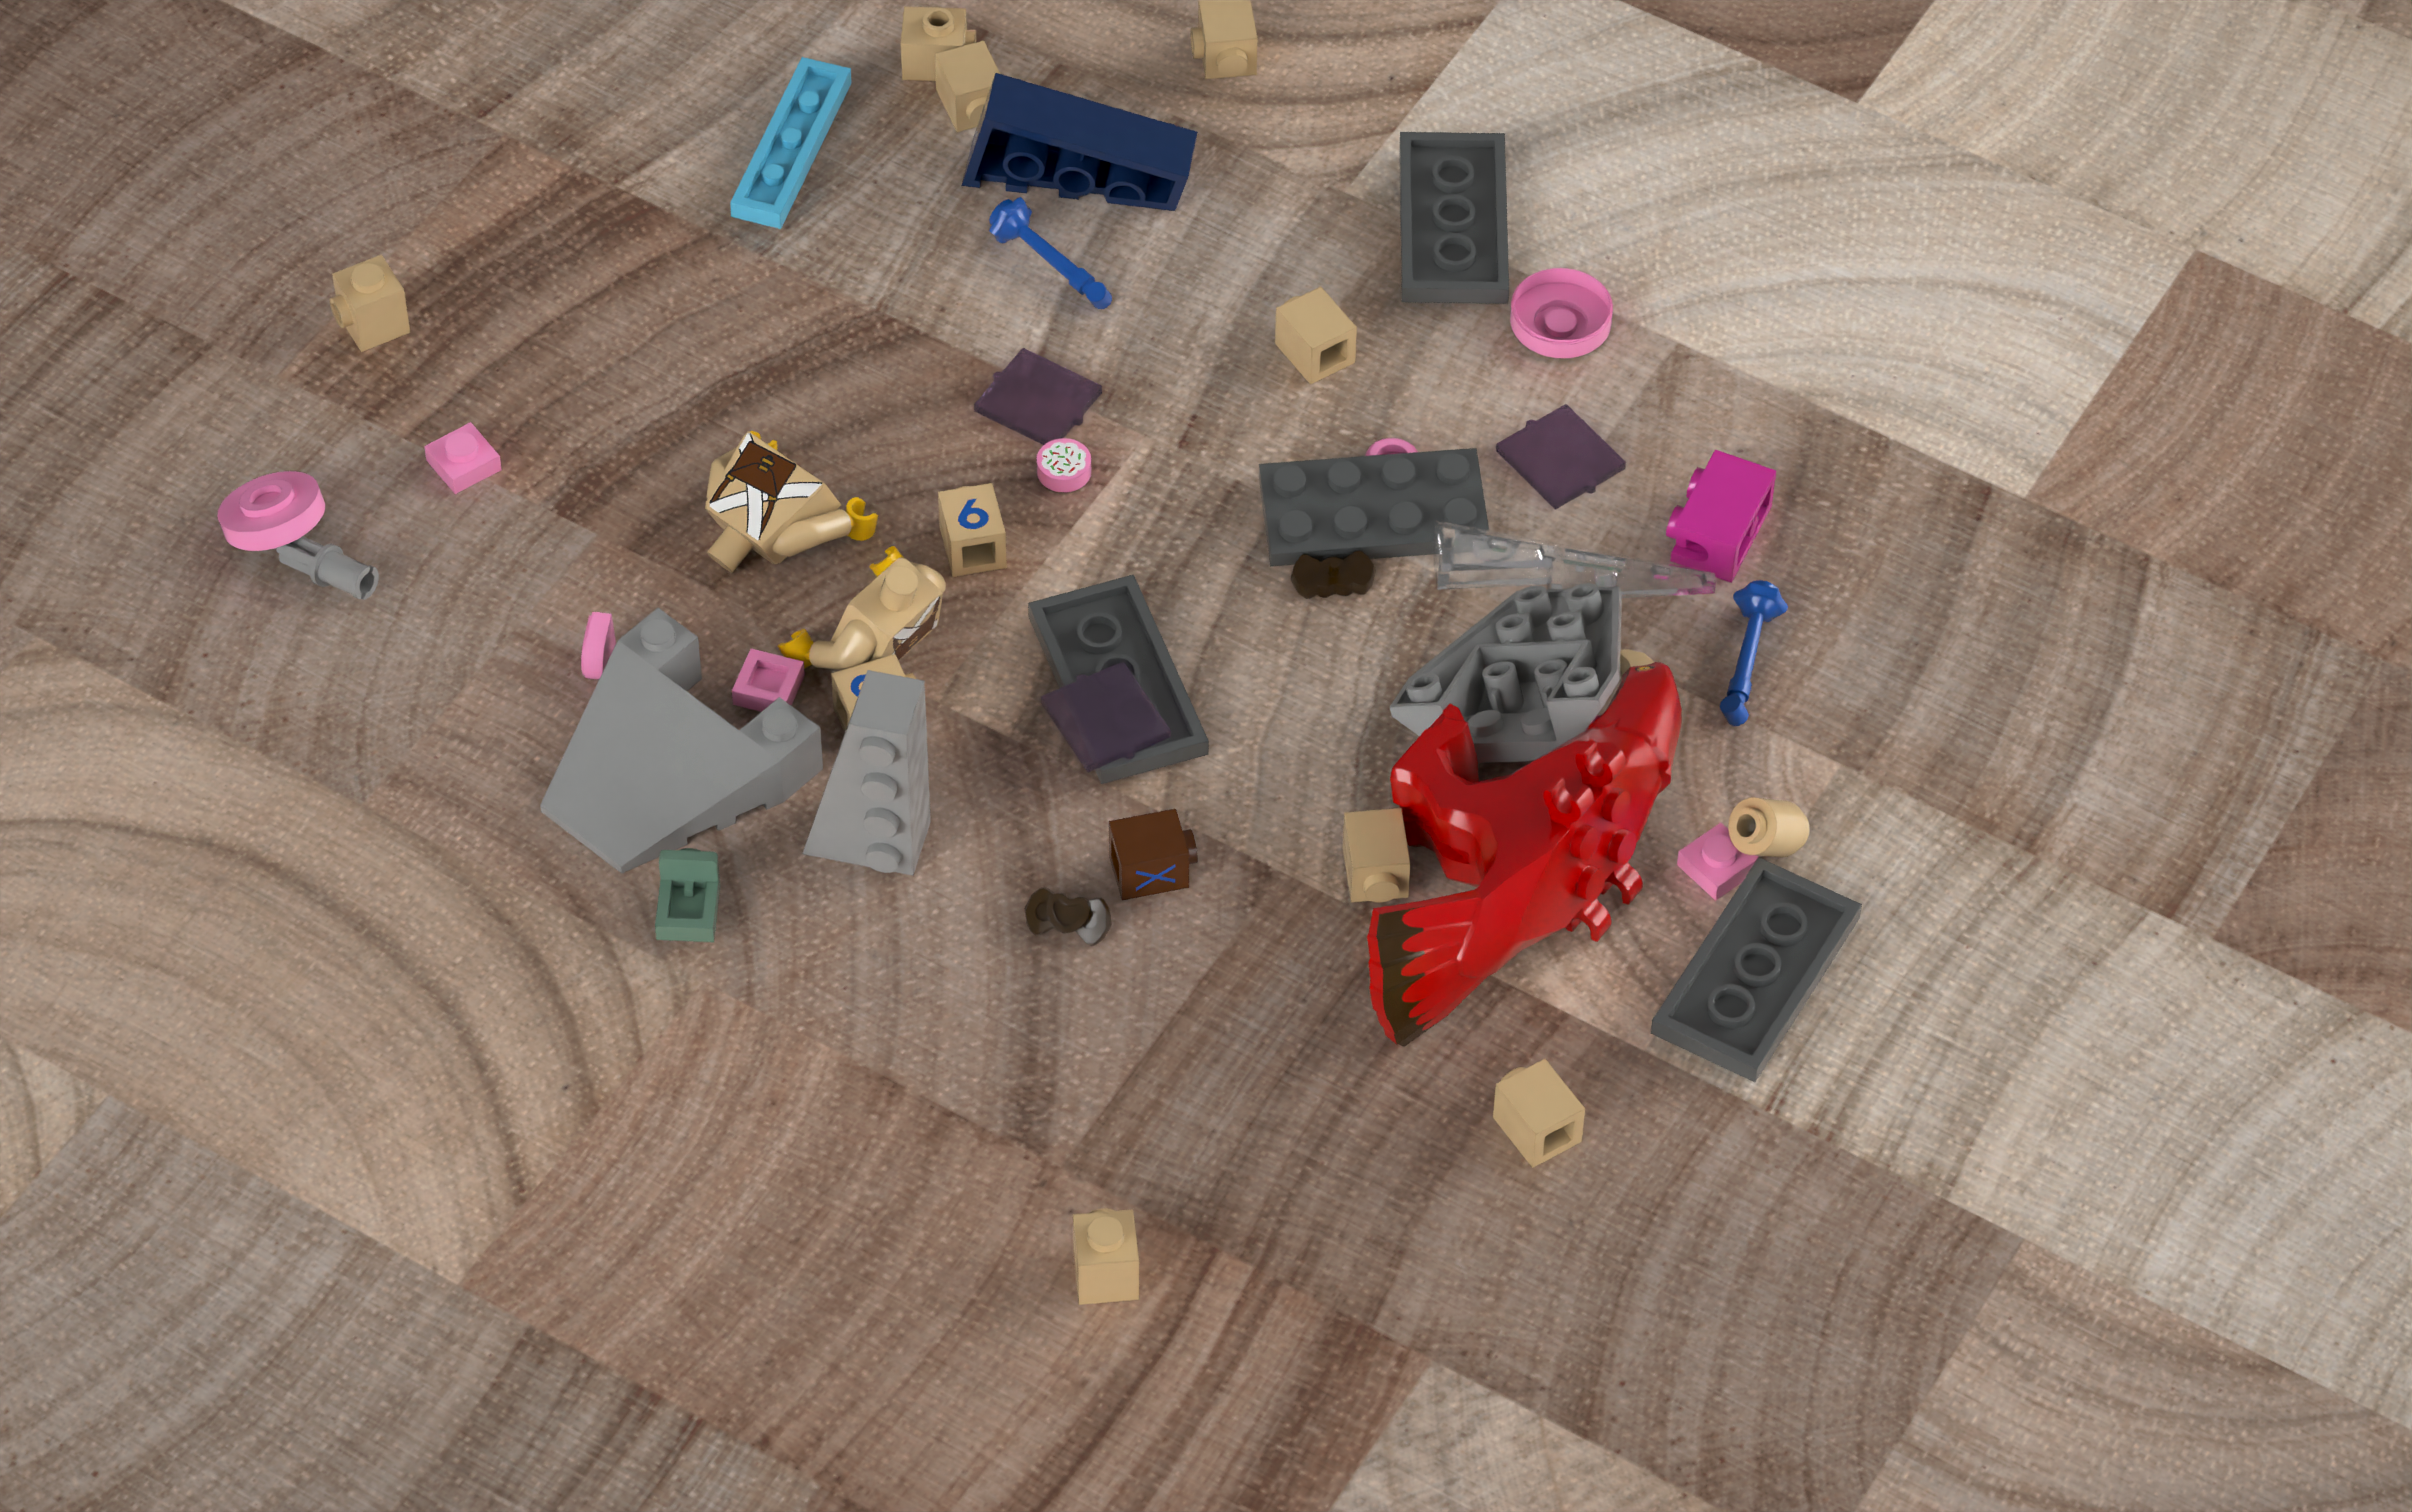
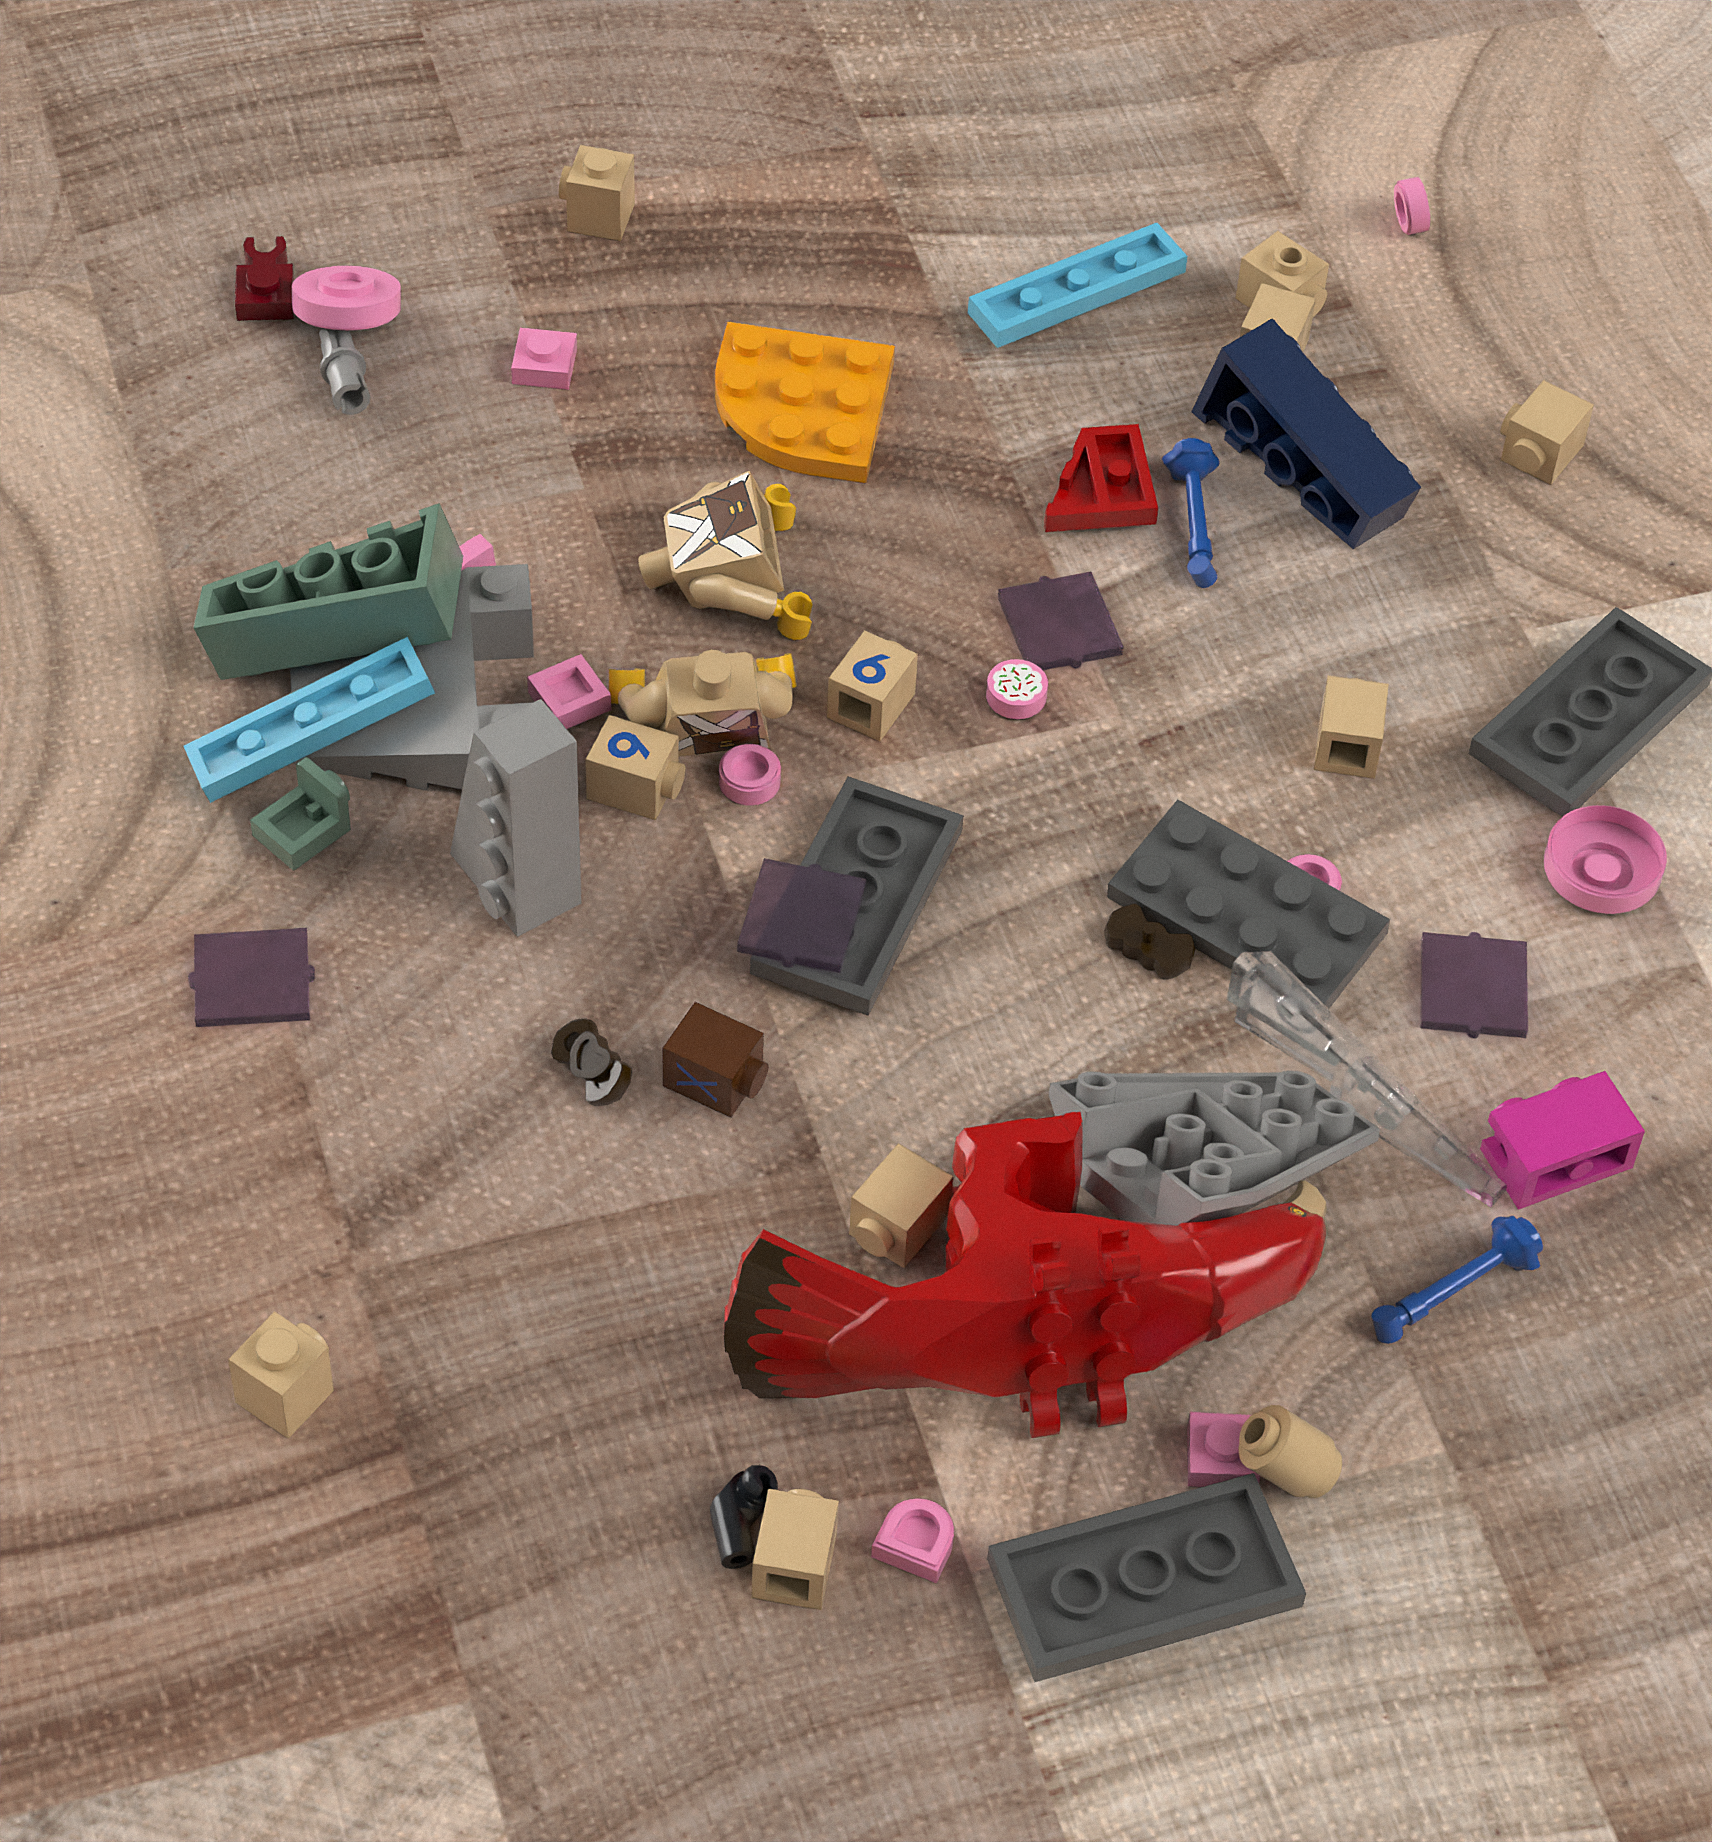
camera: 40 degrees right, 0 degrees up
(186, 548) = (264, 283): none -> dark red plate
(556, 728) = (335, 600): none -> sand green wedge
(620, 827) = (308, 719): none -> medium azure plate
(684, 359) = (804, 398): none -> light orange plate
(767, 1033) = (251, 977): none -> clear purple piece
(949, 652) = (749, 774): none -> bright pink tile
(968, 275) = (1104, 483): none -> red wing
(1471, 1120) = (736, 1510): none -> black arm
(1596, 1054) = (916, 1538): none -> bright pink tile

